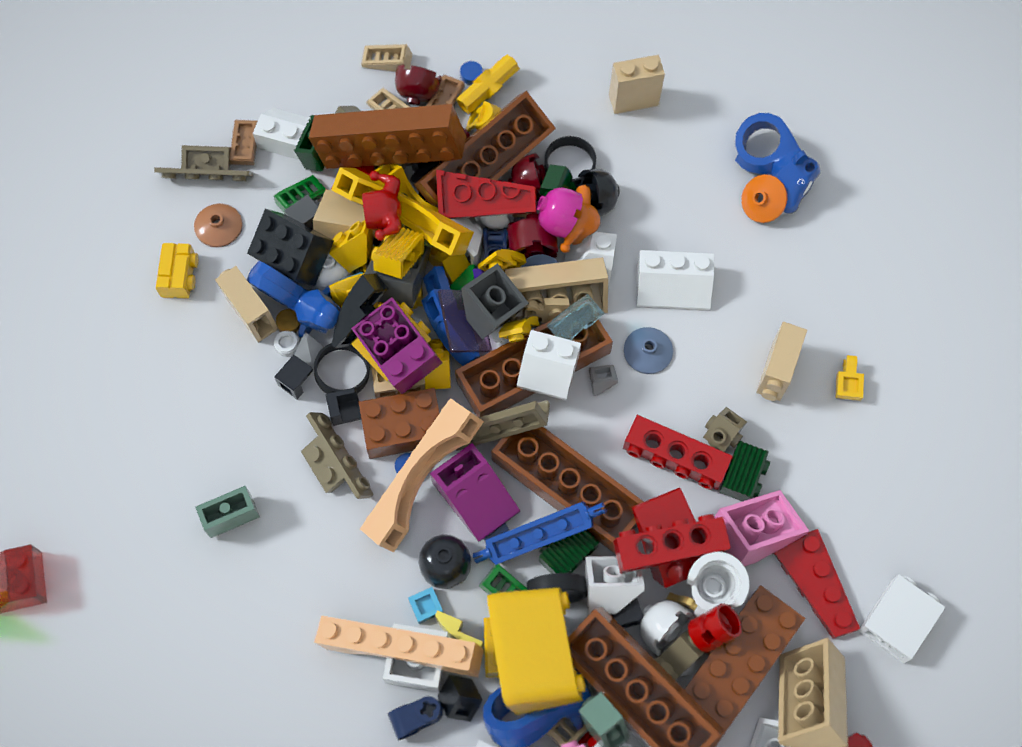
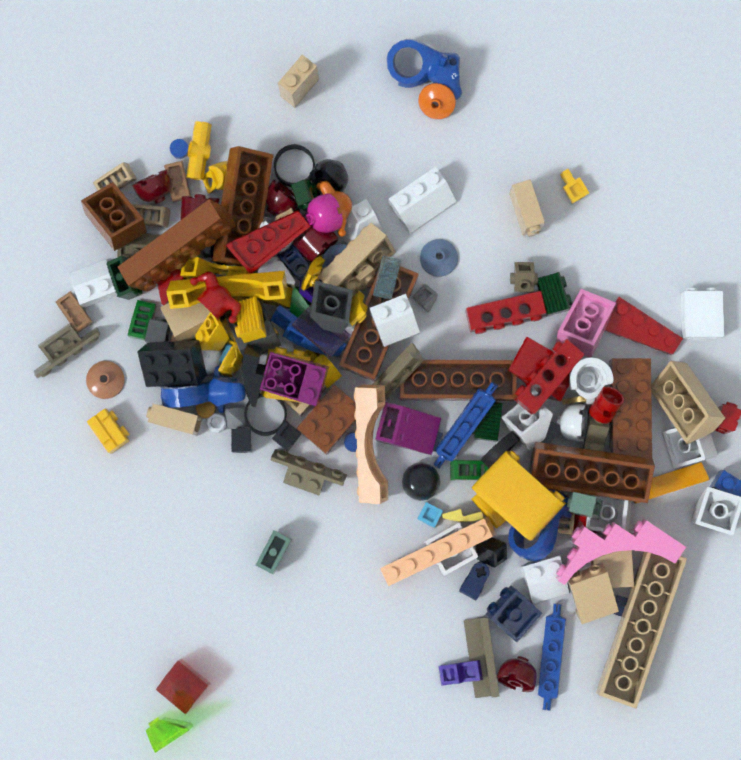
camera: 35 degrees left, 15 degrees up
(354, 79) = (114, 216): none -> dark orange brick

